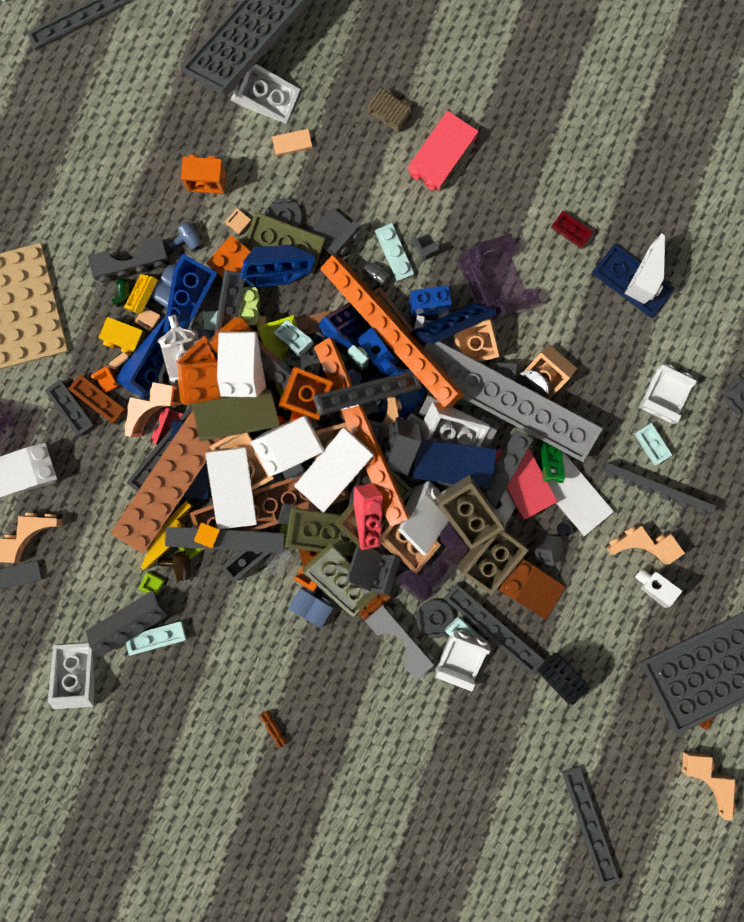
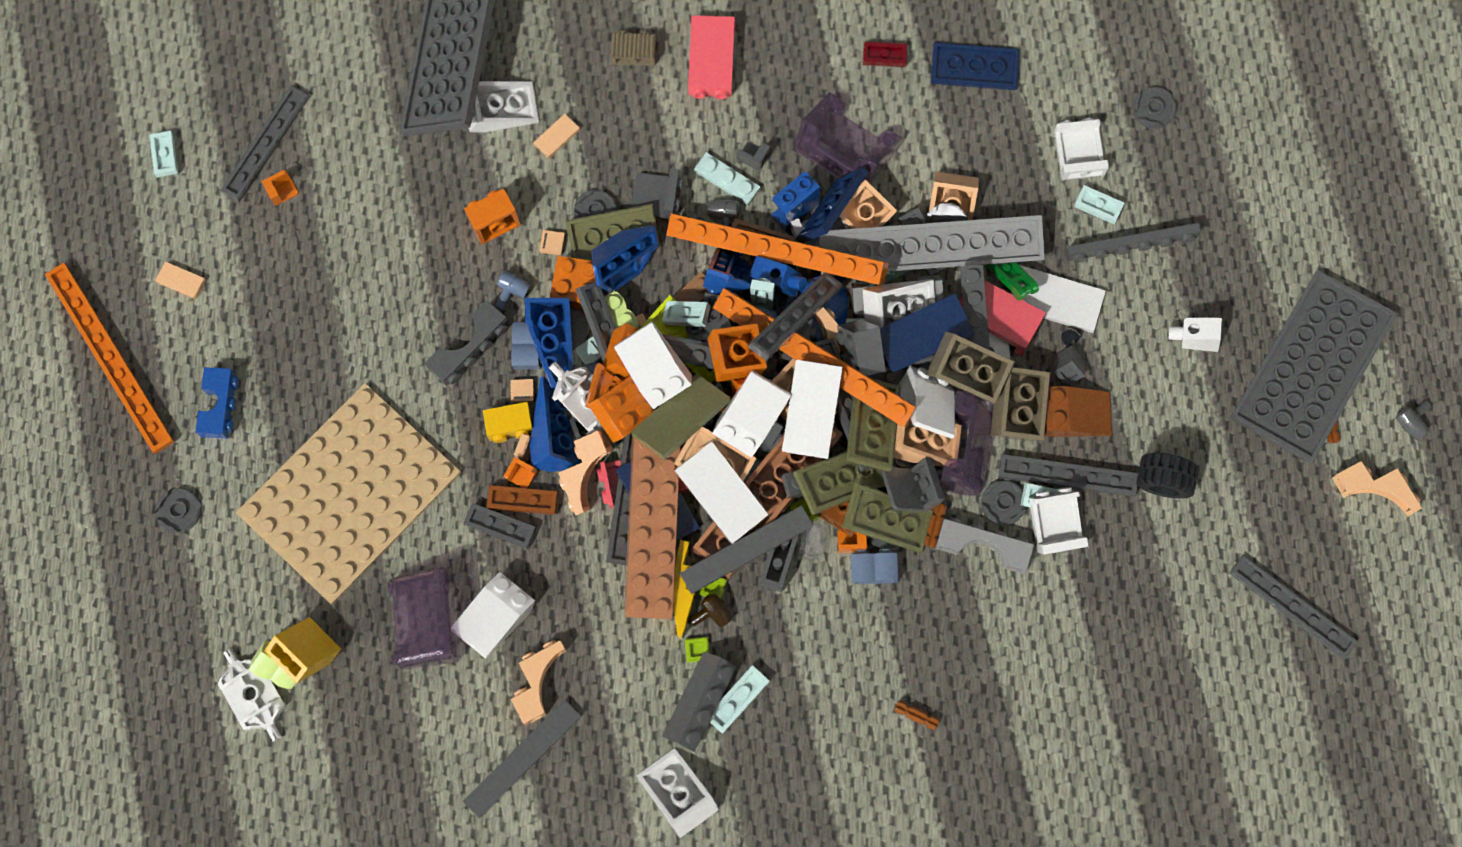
camera: 30 degrees left, 10 degrees down
(68, 57) = (280, 187): none -> orange panel
(123, 292) = (481, 380): dark green arm -> none
(140, 293) = (501, 369): yellow plate -> none
(207, 535) = (727, 554): light orange tile -> none
(368, 515) = (874, 429): coral slope -> none
(650, 273) = (987, 48): white slope -> none
(664, 547) = (1175, 294): light nougat arch -> none

